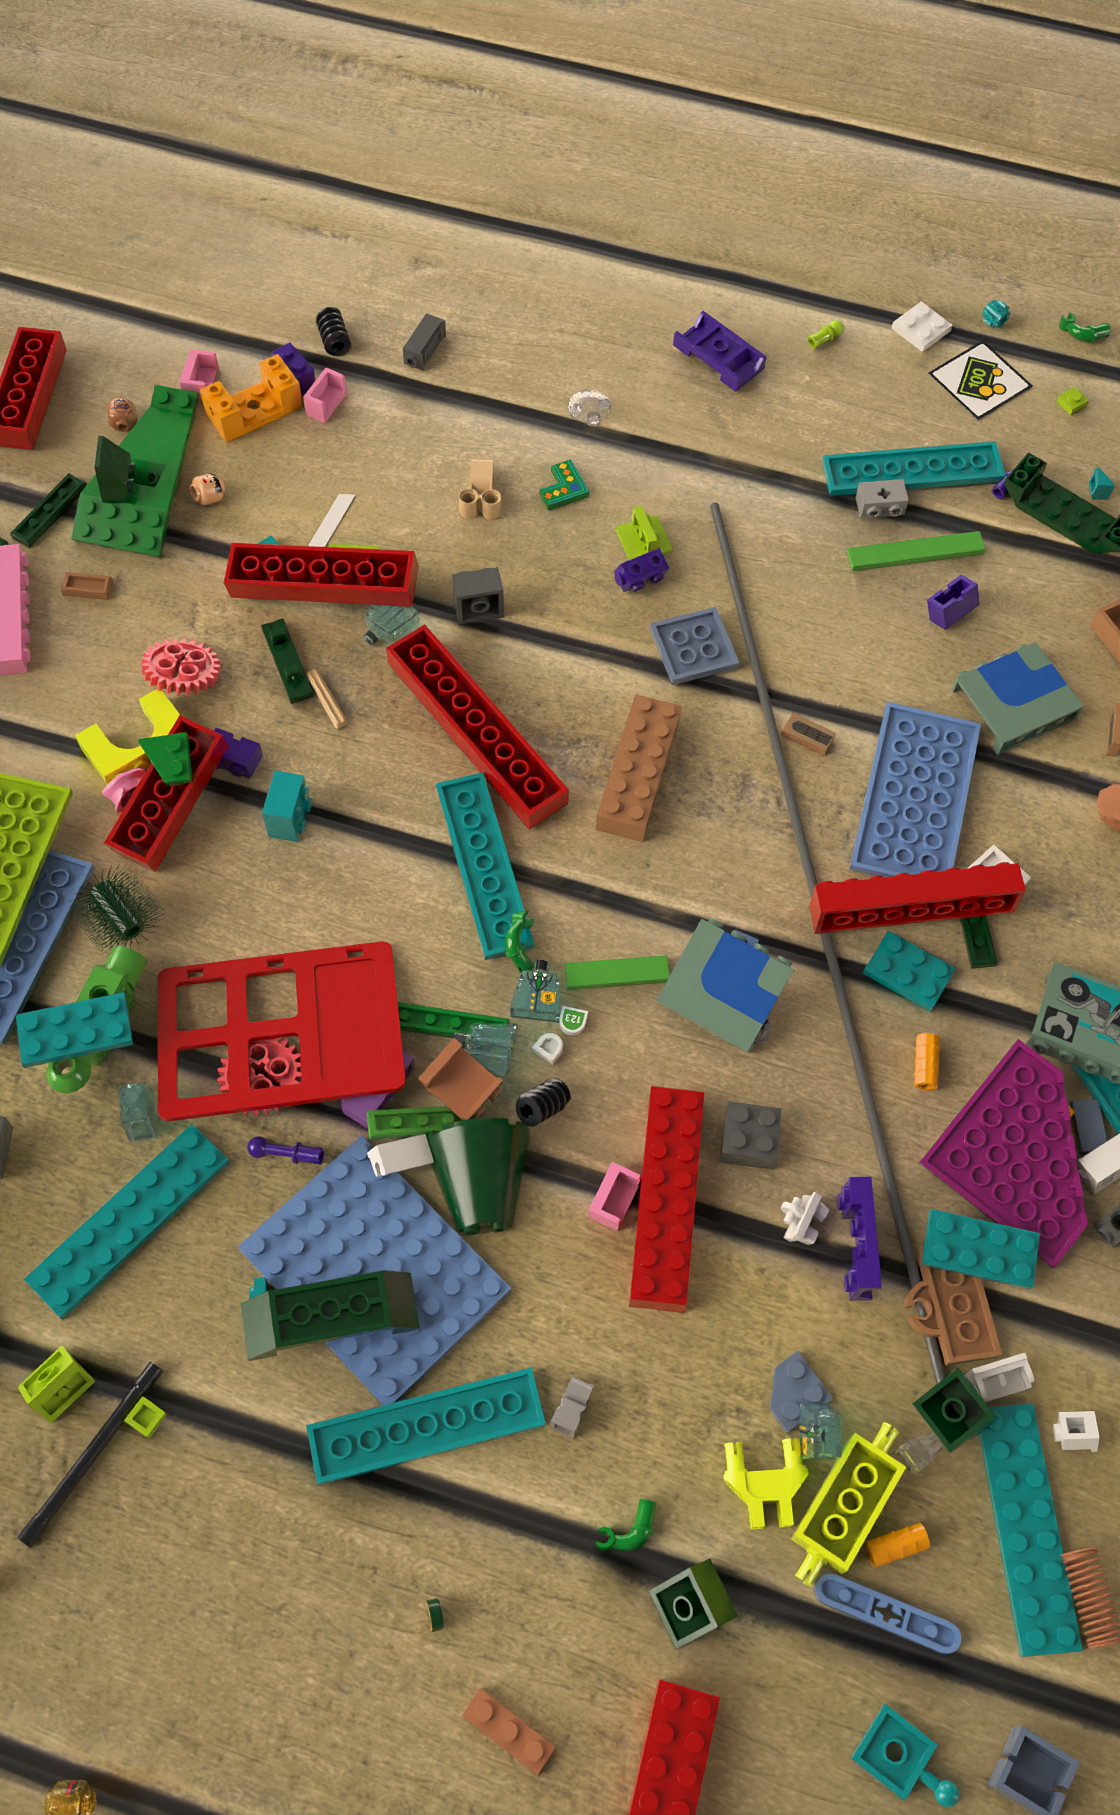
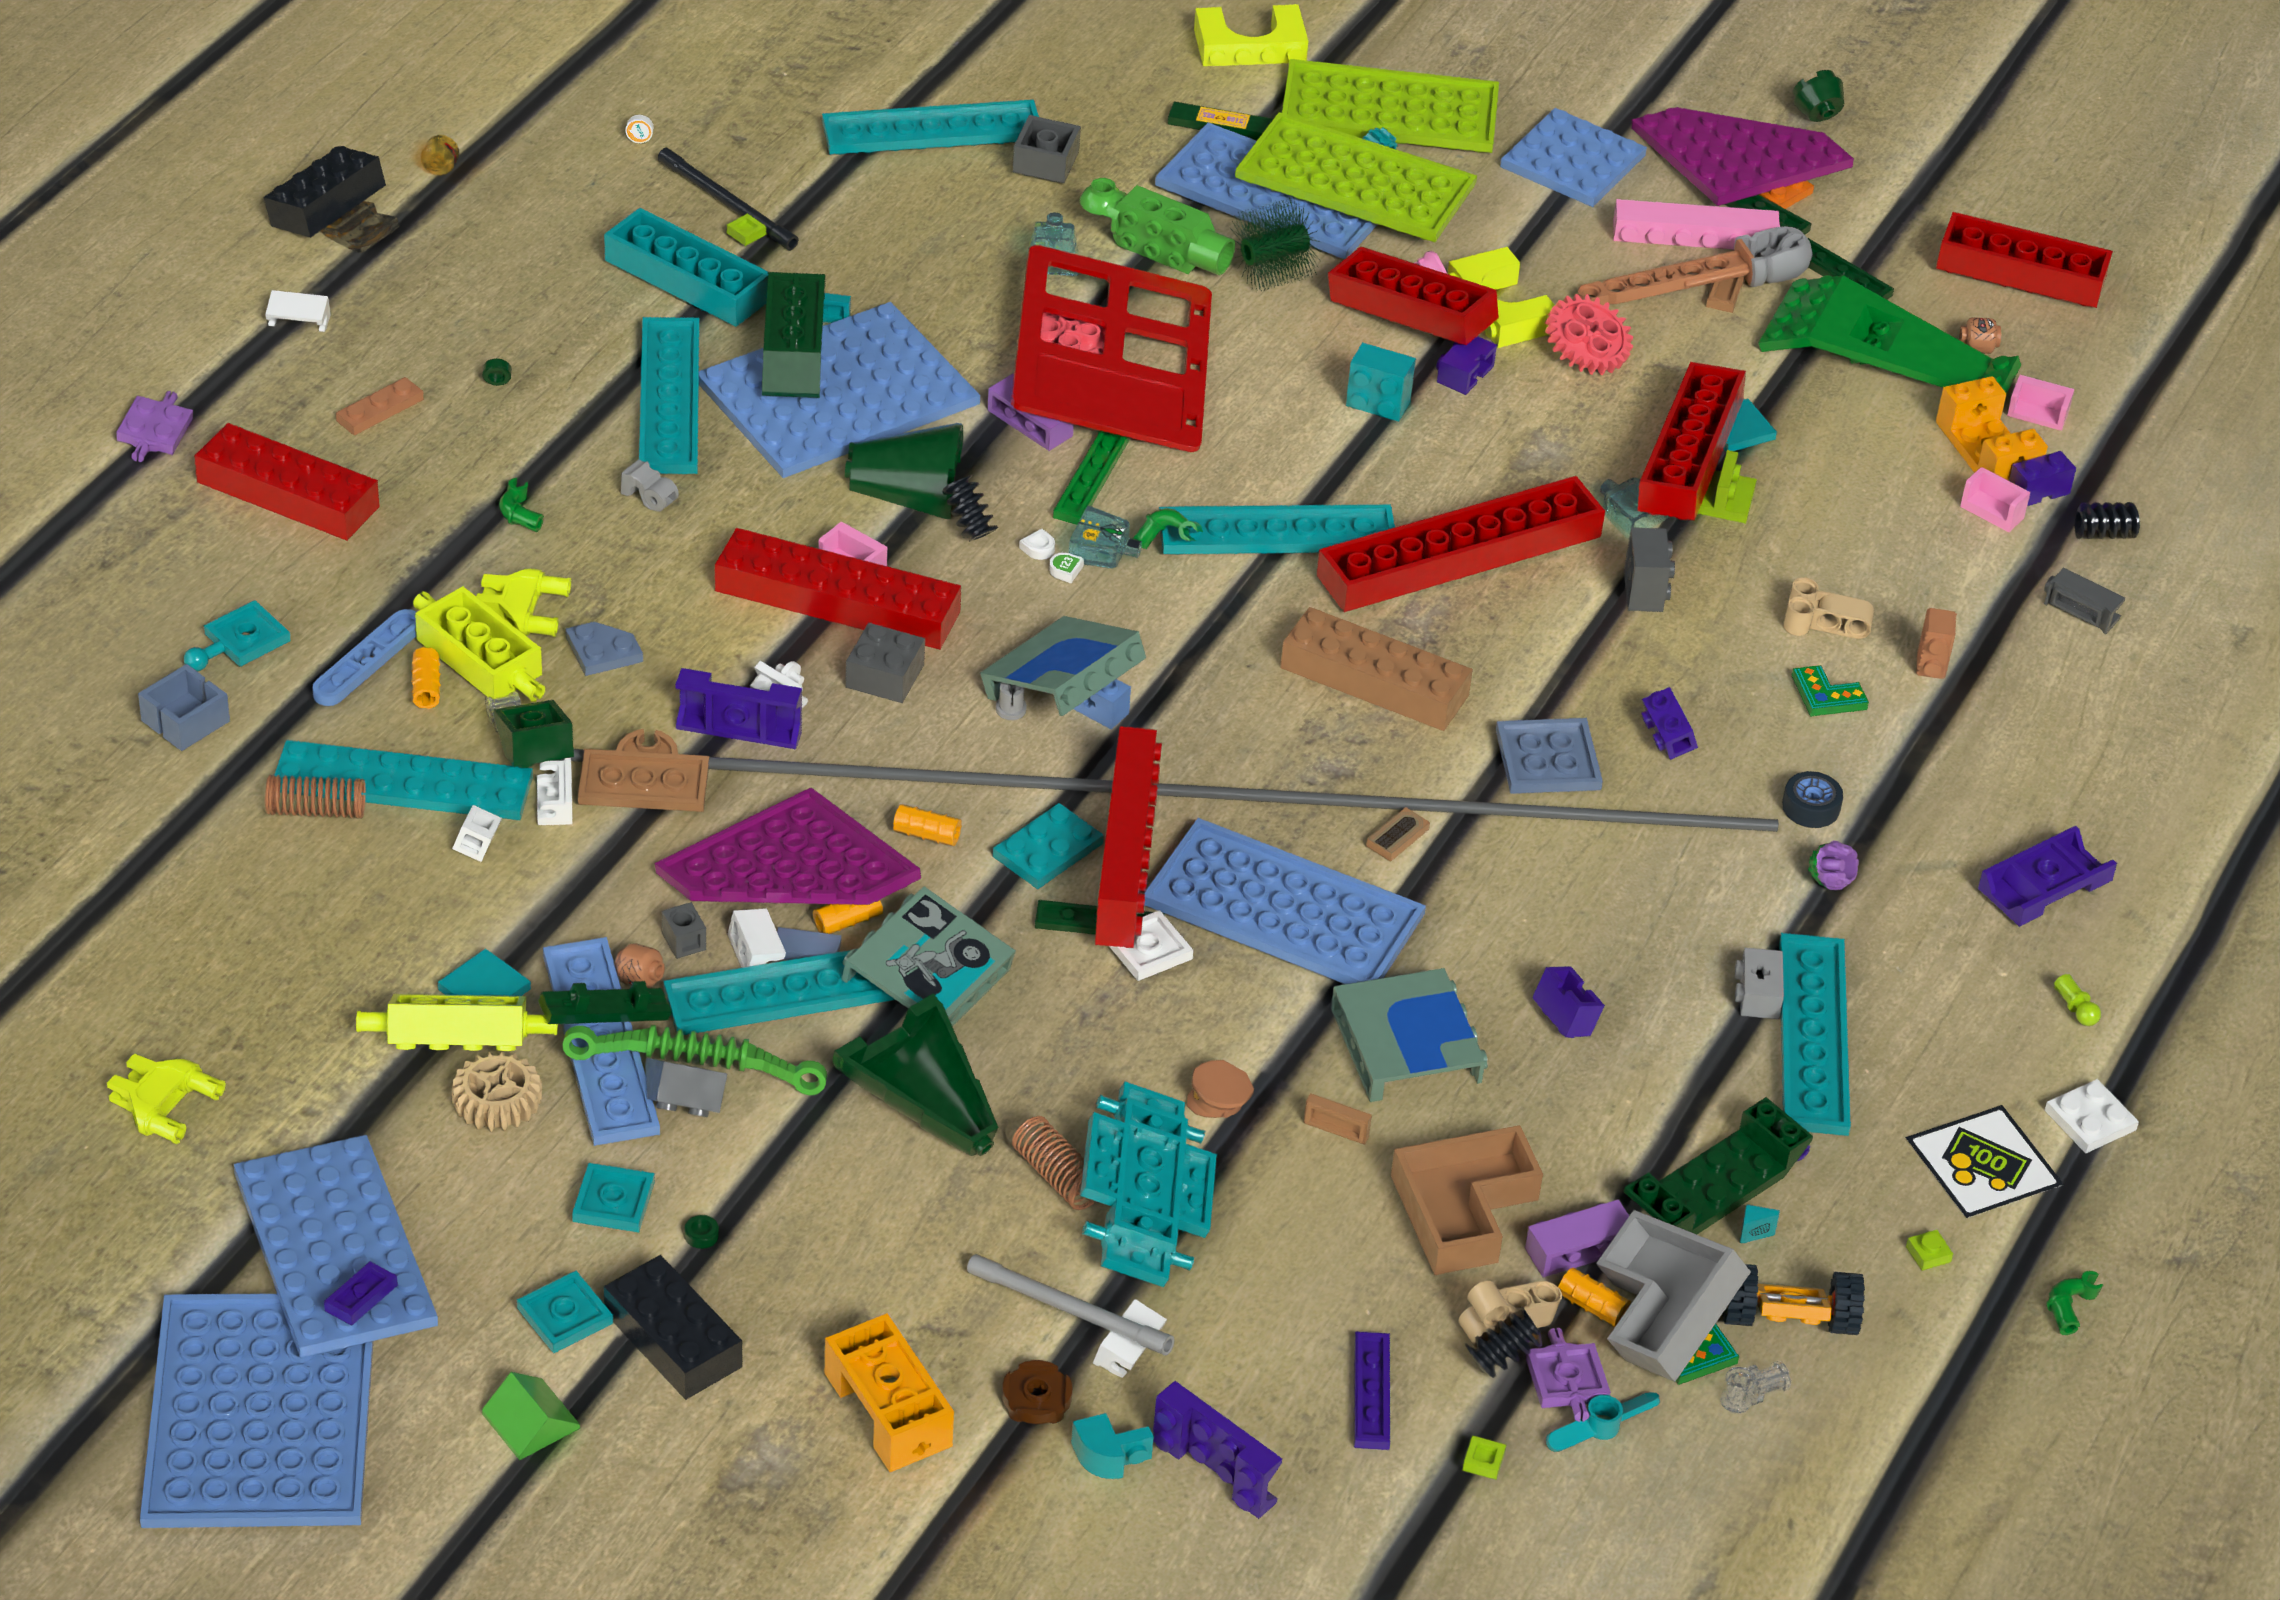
camera: 100 degrees right, 20 degrees down
(55, 1384) = (794, 178): lime bracket -> none
(64, 571) = (1766, 256): none -> piece
(74, 1030) = (1137, 191): teal plate -> none
(114, 472) = (1860, 285): dark green slope -> none
(126, 1221) = (944, 243): teal plate -> none
(170, 757) = (1443, 280): green wing -> none
(207, 489) = (1852, 387): light nougat head -> none
(230, 1458) = (687, 266): none -> teal brick
(259, 1147) = (976, 350): dark purple pin -> none
(287, 661) = (1592, 424): dark green hinge -> none
(326, 698) = (1530, 446): tan axle -> none
(331, 520) = (1789, 485): white sticker -> none
(400, 1155) = (942, 401): white hinge -> none
(408, 1121) = (978, 430): bright green tile -> none
(460, 1082) = (1014, 455): nougat panel -> none
(490, 1045) = (1046, 489): clear light blue torso -> none
(510, 414) = (1936, 643): none -> nougat brick
(589, 406) = (1962, 740): clear dish -> none
(617, 972) = (1116, 596): bright green tile -> none
(642, 534) = (1729, 743): lime bracket -> none
(685, 484) = (1812, 799): none -> black wheel
(693, 1603) = (435, 532): dark green slope -> none
(755, 465) = (1834, 865): none -> medium lavender piece
(820, 1432) = (555, 631): clear light blue torso -> none
(915, 551) = (1671, 1006): bright green tile -> none
(980, 1249) = (693, 799): teal plate -> none
(996, 313) = (2103, 1194): teal gear -> none

